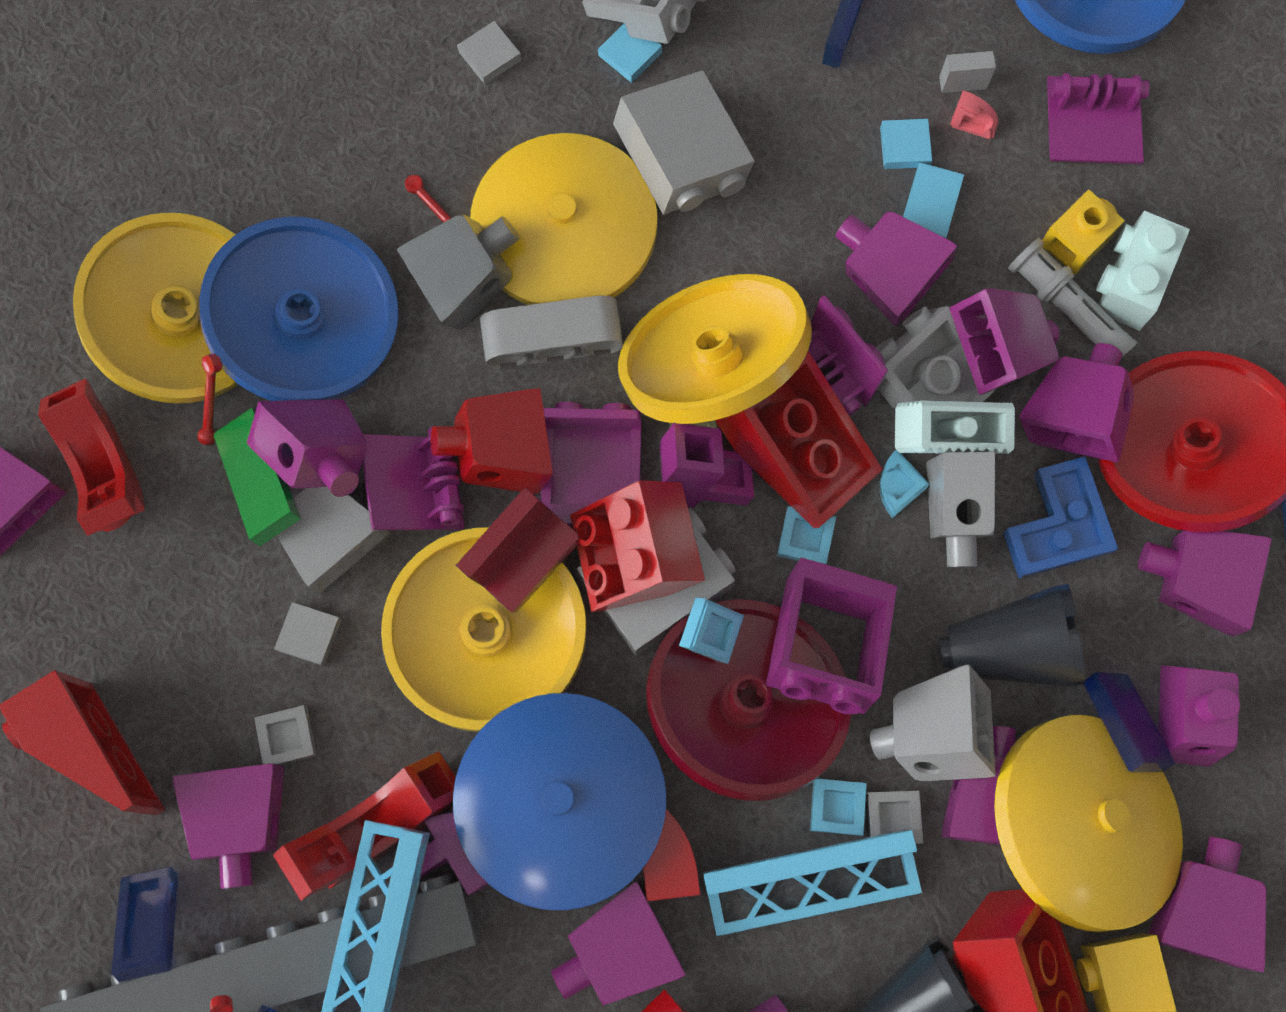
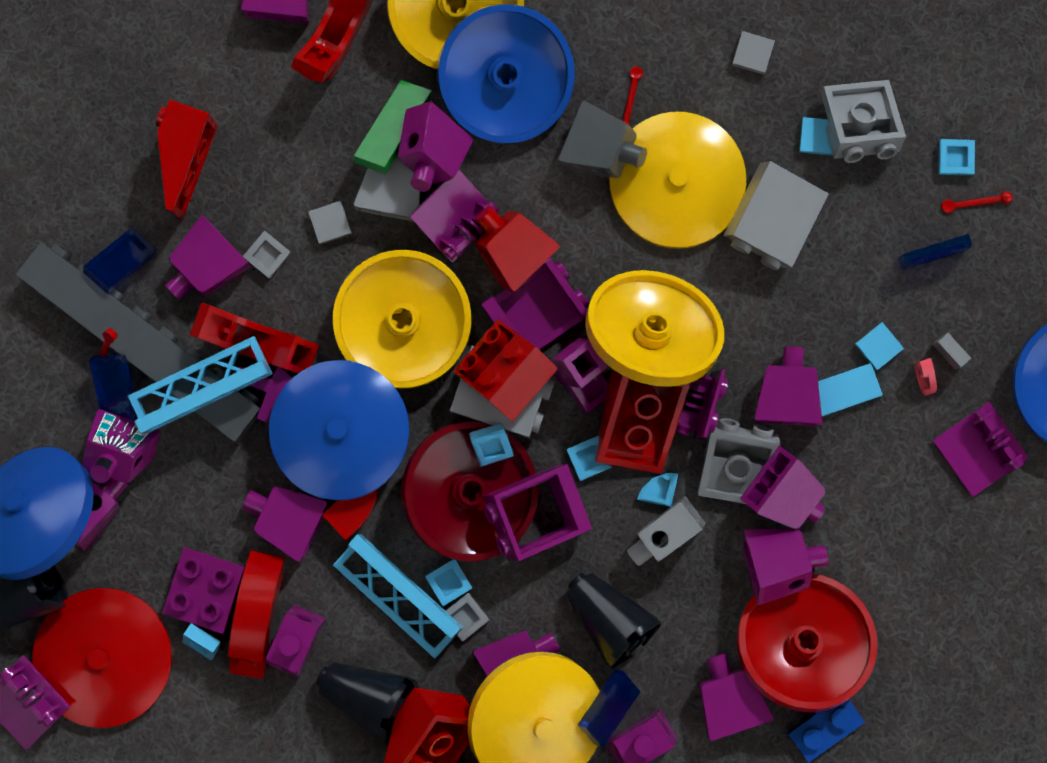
camera: 55 degrees right, 10 degrees up
(211, 365) = (434, 54): red hinge -> none
(519, 551) = (455, 308): dark red panel -> none
(551, 329) = (603, 224): light grey beam -> none
(941, 728) = (529, 607): light grey torso -> none
(954, 427) = (706, 497): light aqua brick -> none
(1057, 285) = (849, 497): light grey pin -> none
(1074, 525) = (706, 606): blue plate -> none
(1082, 231) = (895, 490): yellow brick -> none
(1142, 270) = (894, 541): light aqua brick -> none

